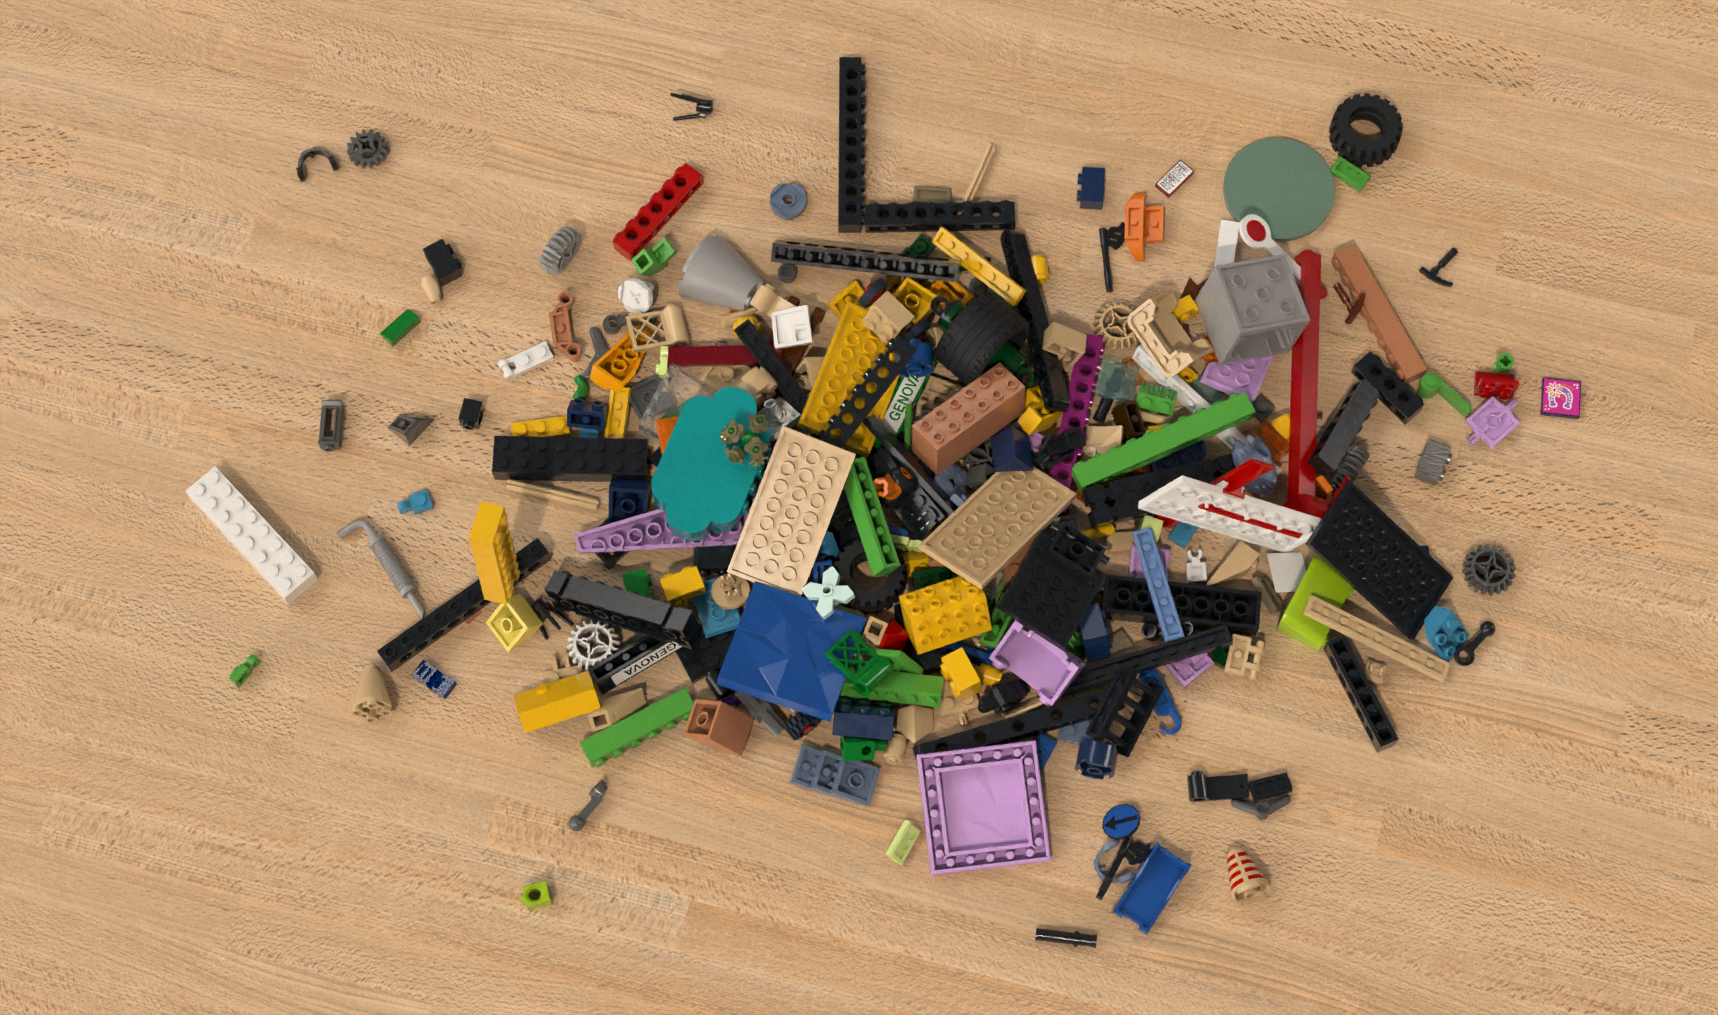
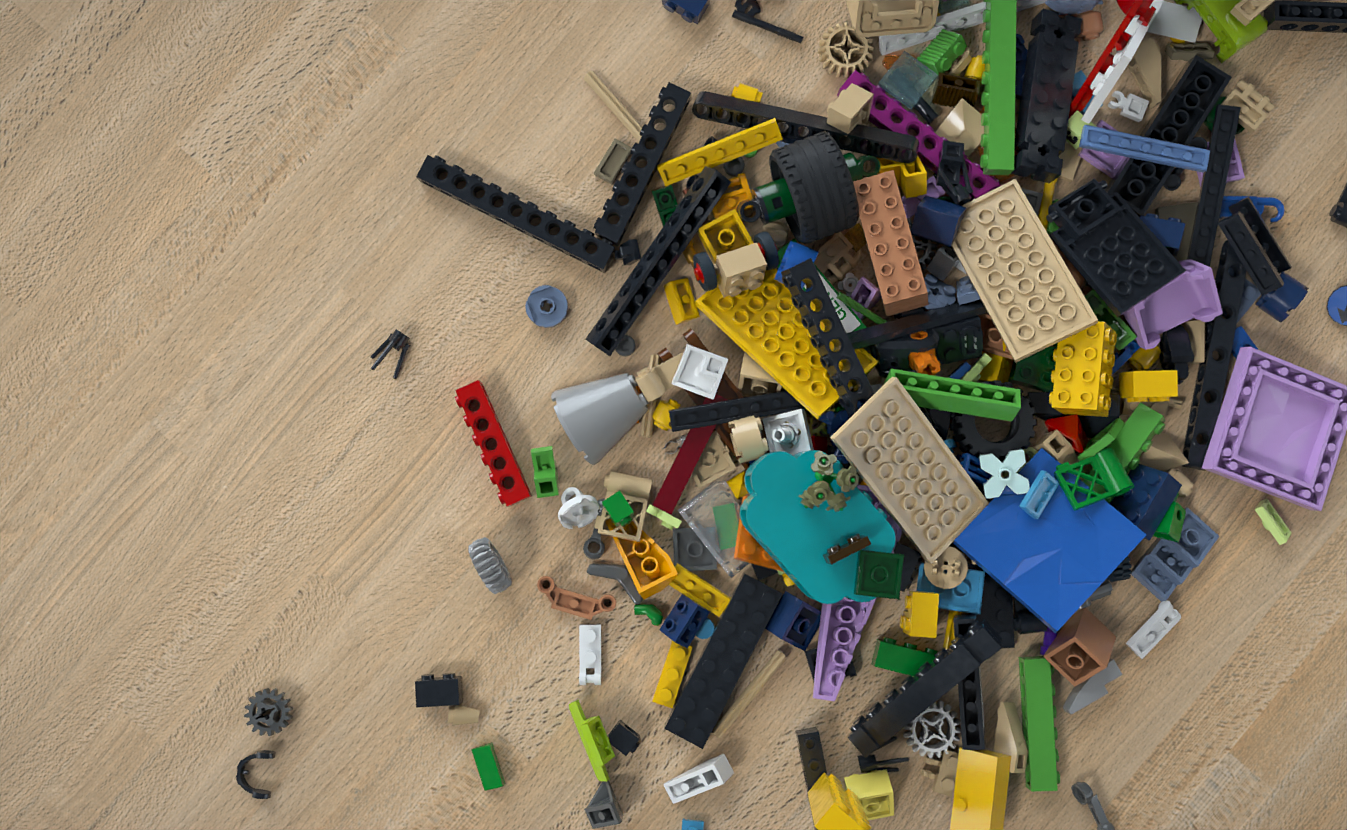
camera: 60 degrees left, 15 degrees up
(459, 389) = (594, 740): none -> lime plate
(466, 485) = (699, 779): none -> white slope
(651, 320) = (618, 509): none -> green brick
(690, 756) = (1091, 689): none -> light grey slope
(695, 519) = (879, 574): none -> dark green tile
(708, 486) = (838, 552): none -> dark brown plate
(762, 785) = (1154, 629): none -> white plate
(824, 624) = (1039, 494): none -> dark azure plate
(863, 238) = (628, 252): none -> black tile

